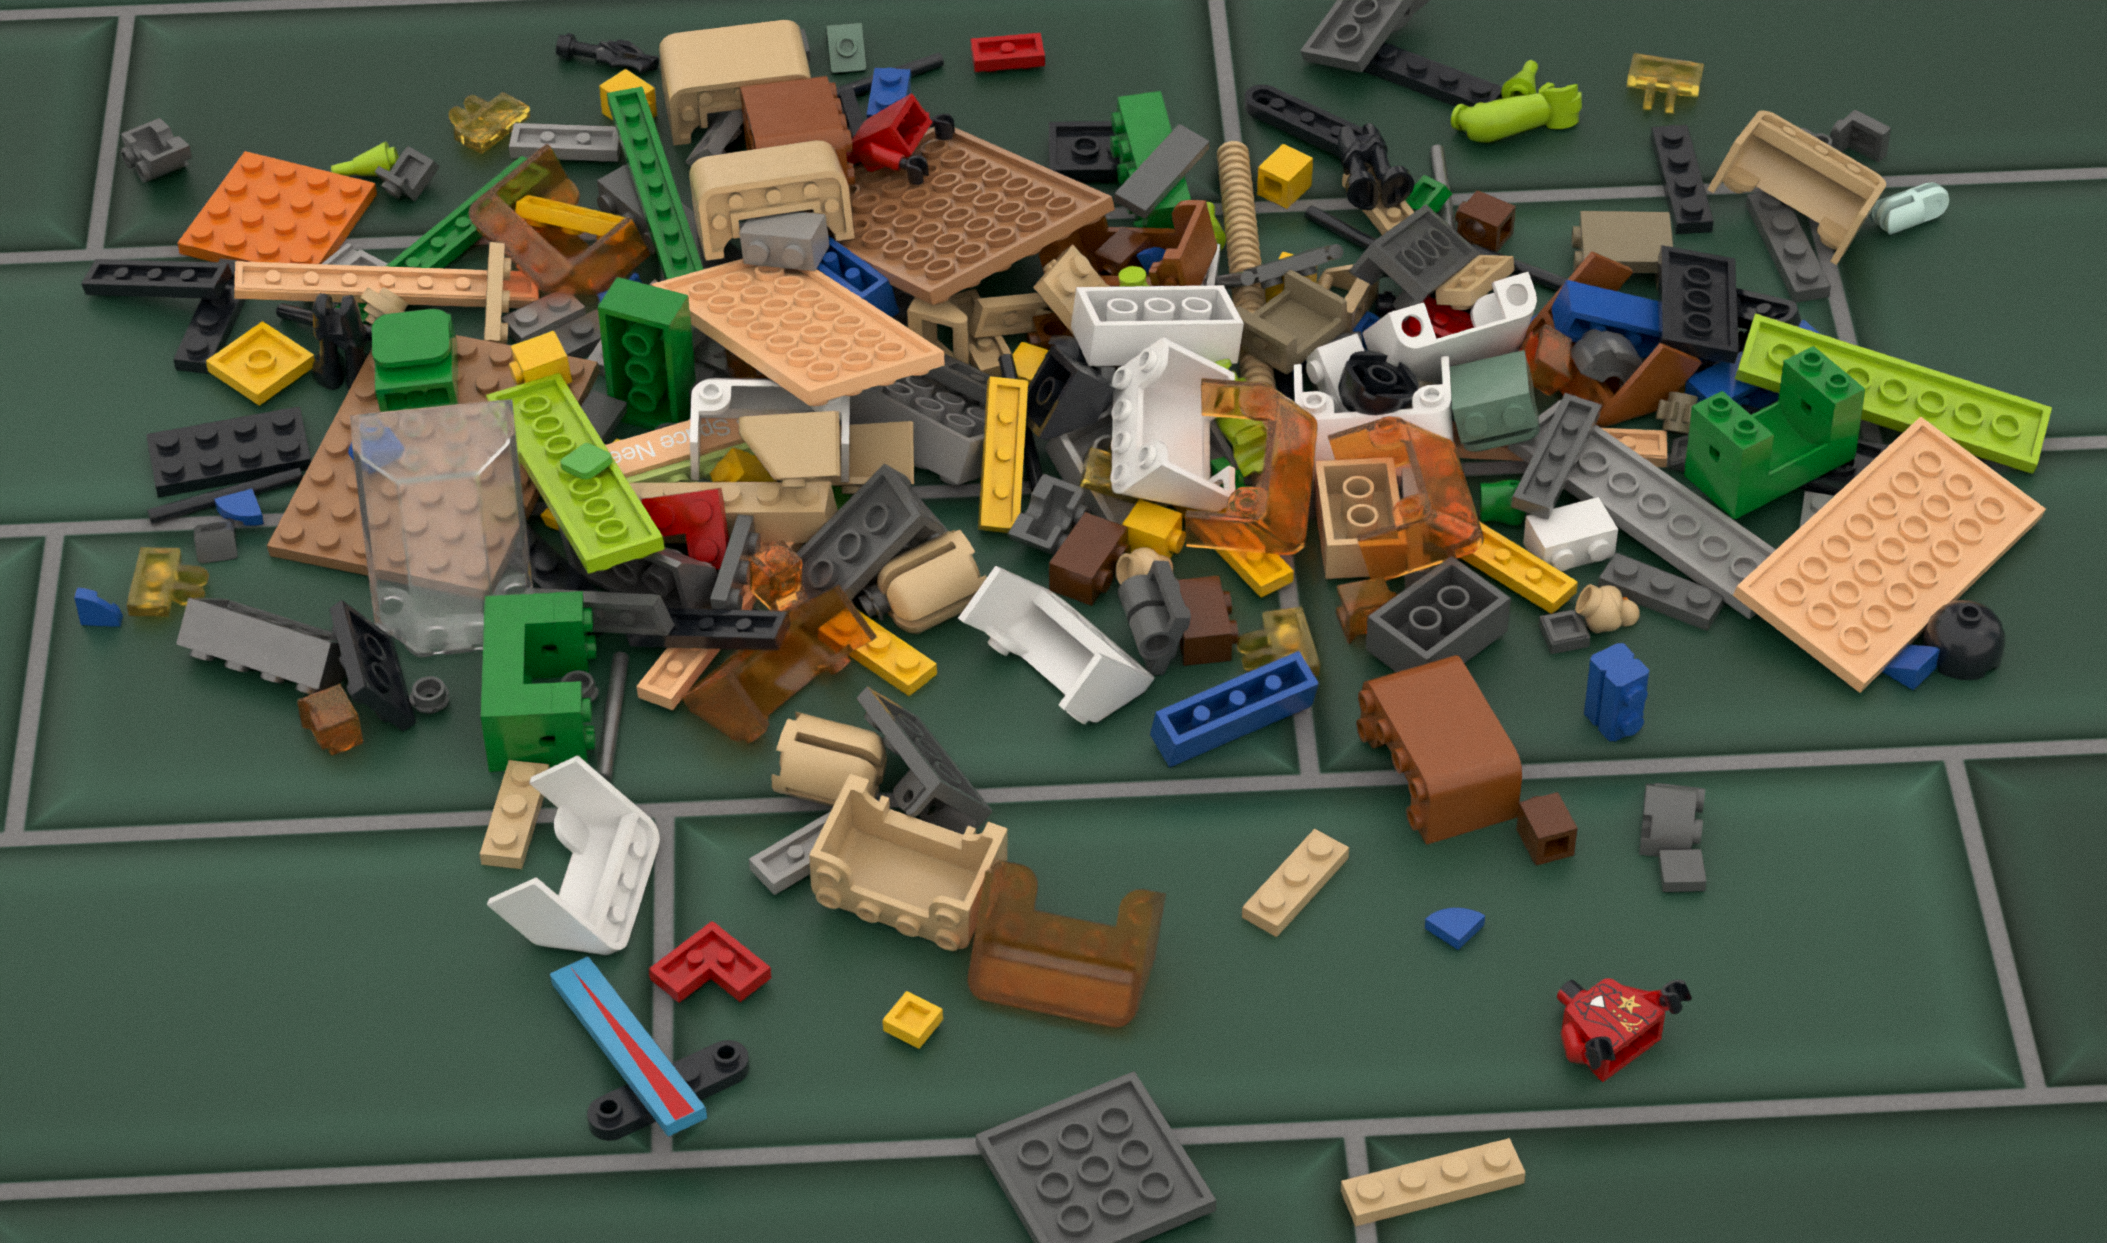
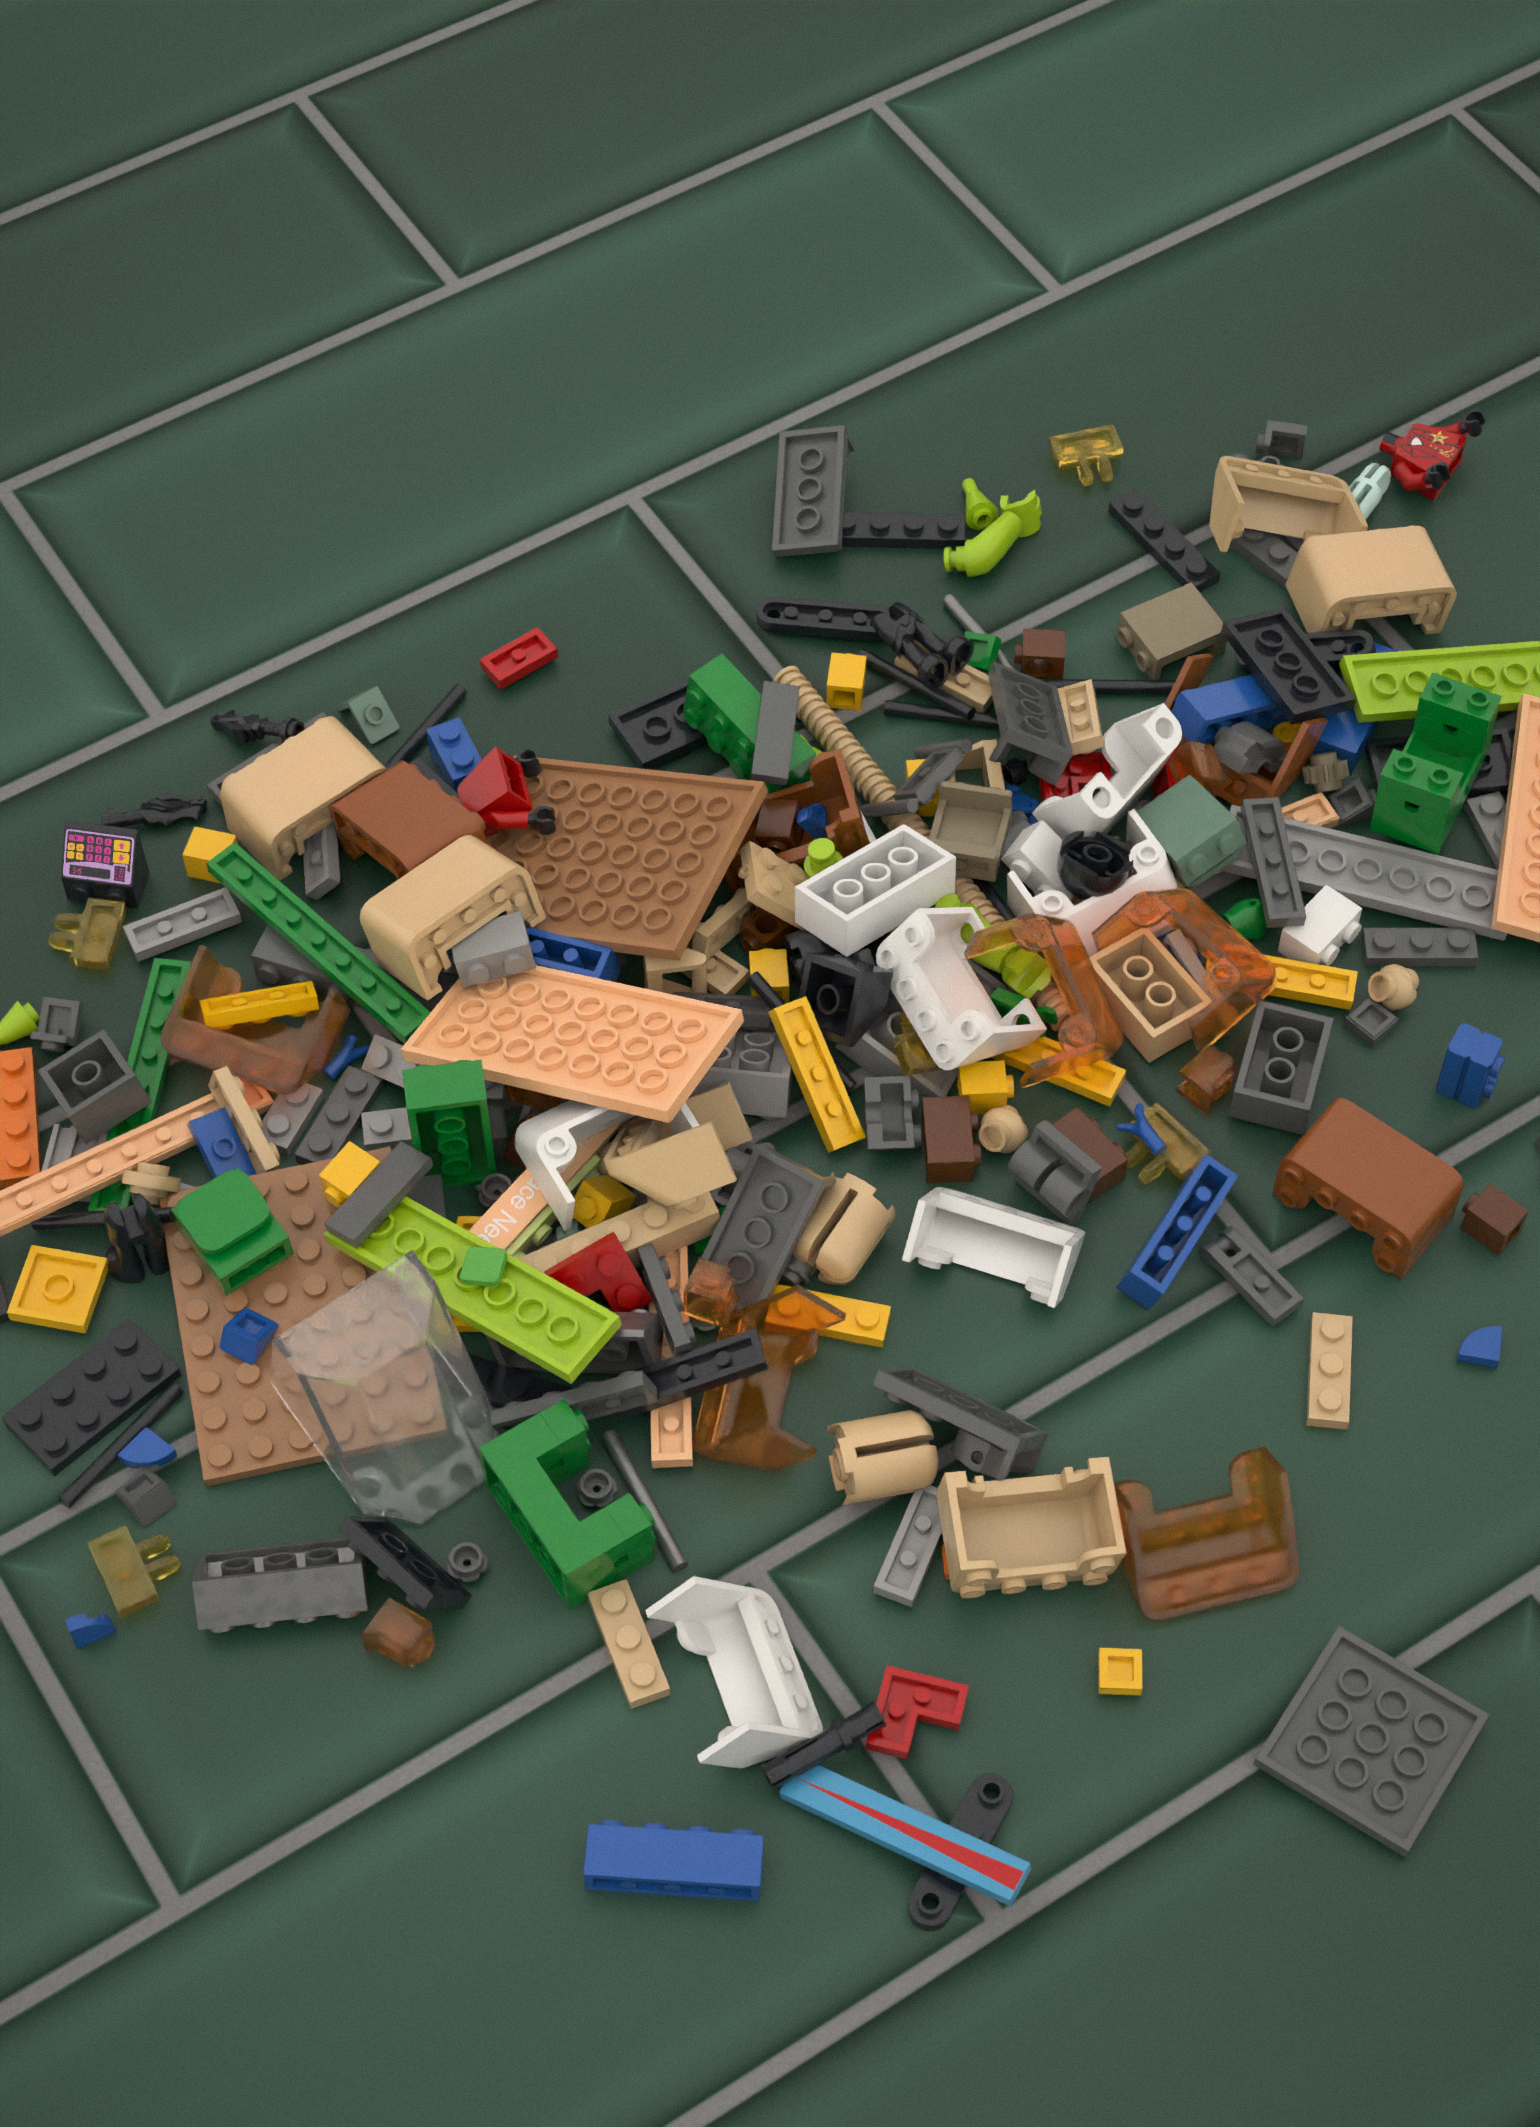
camera: 30 degrees left, 10 degrees up
(392, 221) = (95, 1086): none -> dark grey brick
(422, 981) = (674, 1861): none -> blue brick
(467, 306) = (220, 1143): none -> blue plate
(531, 68) = (103, 863): none -> black slope
(552, 380) = (378, 1194): none -> dark grey tile
(623, 950) = (813, 1751): none -> black pin
(728, 16) = (252, 727): none -> black piece
(1268, 619) = (1144, 1131): none -> blue bar
(1281, 779) = (1252, 1276): none -> dark grey plate
(1338, 189) = (913, 683): none -> black bar
(1847, 266) = (1370, 577): none -> tan windscreen
(2002, 200) = (1429, 454): none -> red torso

